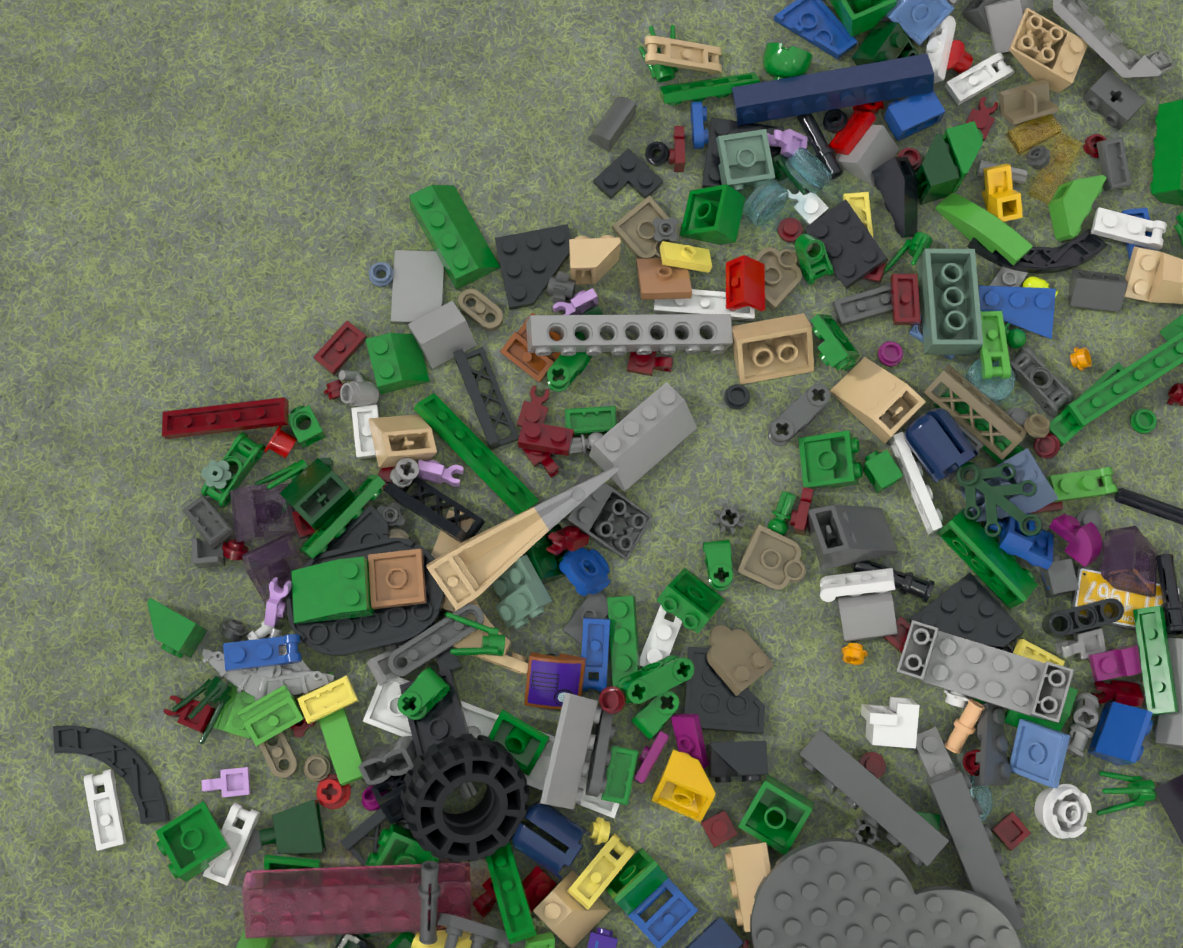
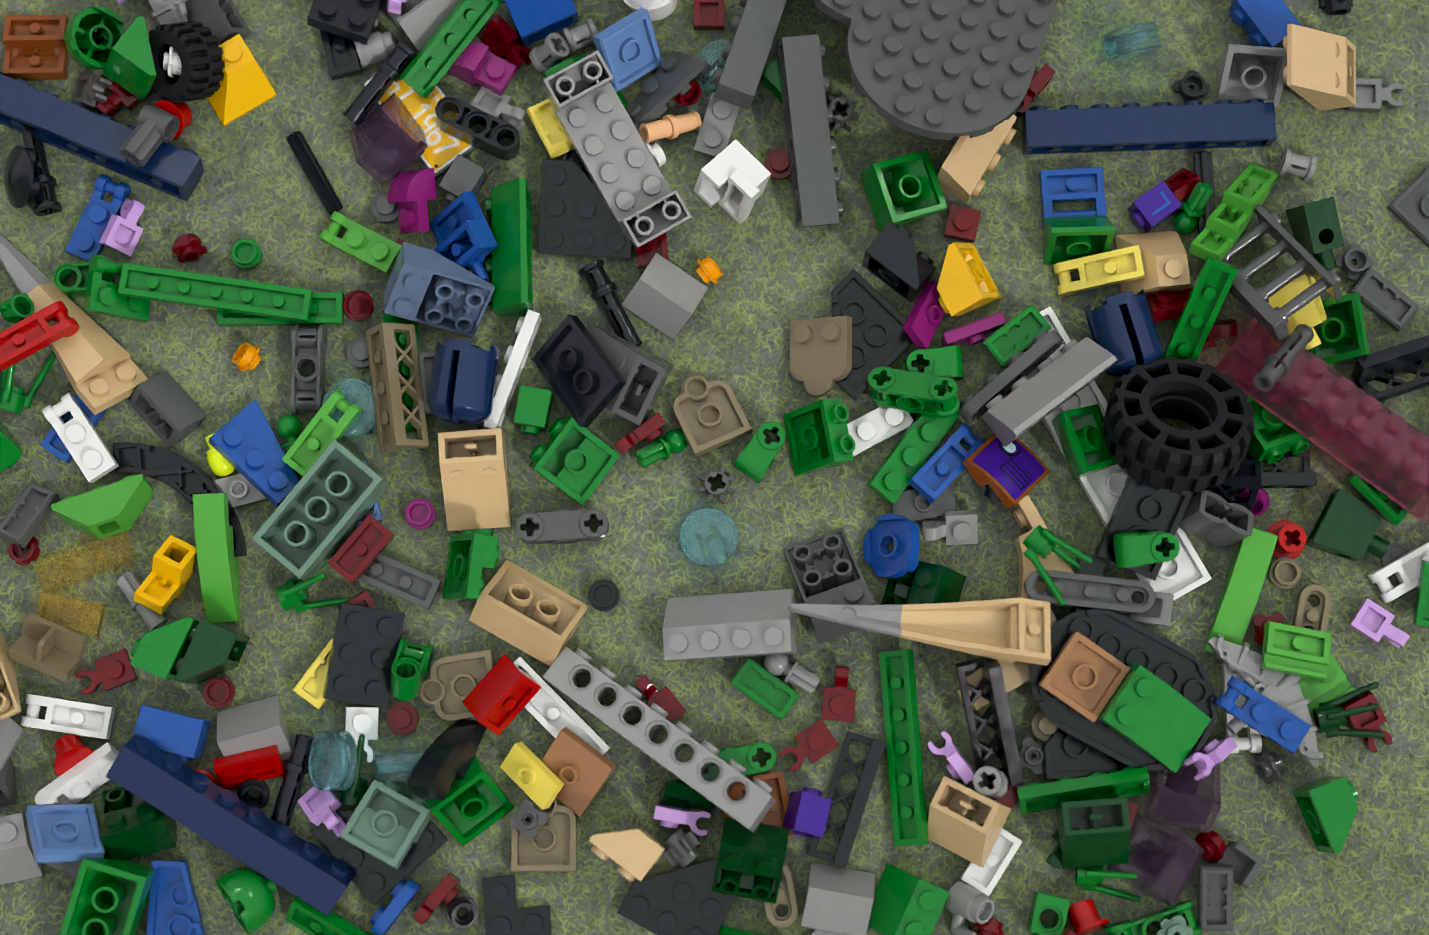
camera: 135 degrees left, 5 degrees up
(327, 699) = (1232, 621): light yellow plate -> none
(502, 366) = (807, 813): none -> dark purple brick
(511, 308) = (750, 861): none -> dark green slope
(520, 594) = (974, 569): sand green plate -> none
(546, 438) = (825, 704): dark red plate -> none
(555, 617) = (957, 528): none -> light grey plate
(567, 538) = (887, 587): dark red plate -> none
(599, 831) = (1071, 306): light yellow plate -> none
(612, 699) = (972, 402): dark red plate -> none
(704, 482) = (708, 537): none -> clear light blue head
(745, 219) = (446, 760): none -> black slope
(856, 584) = (653, 325): white plate -> none
(876, 514) = (578, 371): none -> black plate
(900, 191) = (262, 663): black slope -> none
(995, 495) = (461, 289): dark green plant -> none
(1037, 426) = (352, 327): dark tan plate -> none
(1038, 157) = (95, 578): dark grey plate -> none

